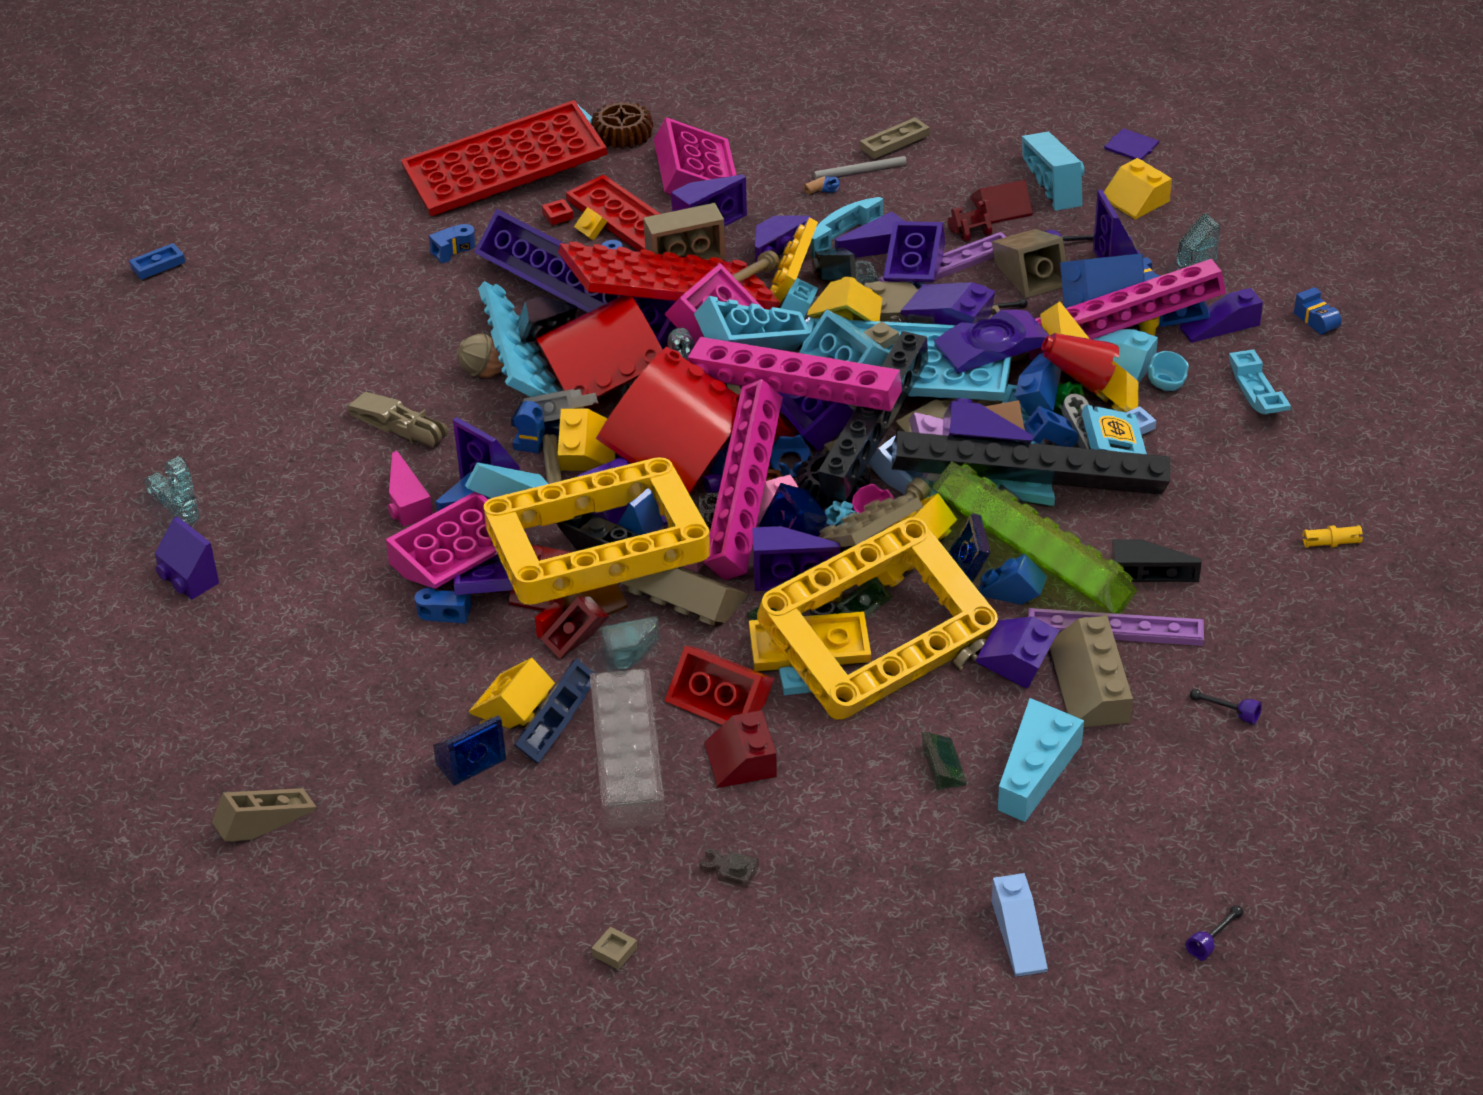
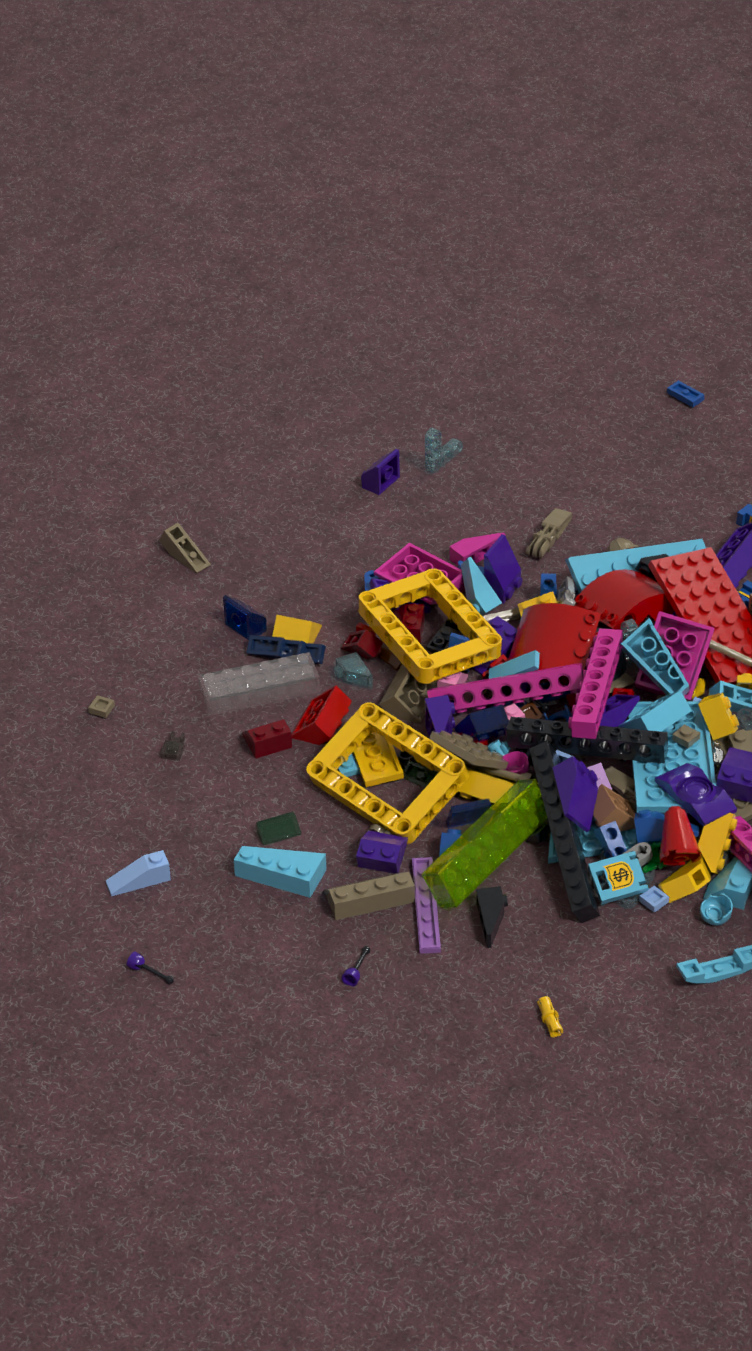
camera: 80 degrees right, 0 degrees up
(707, 464) = (521, 664): none -> medium azure tile

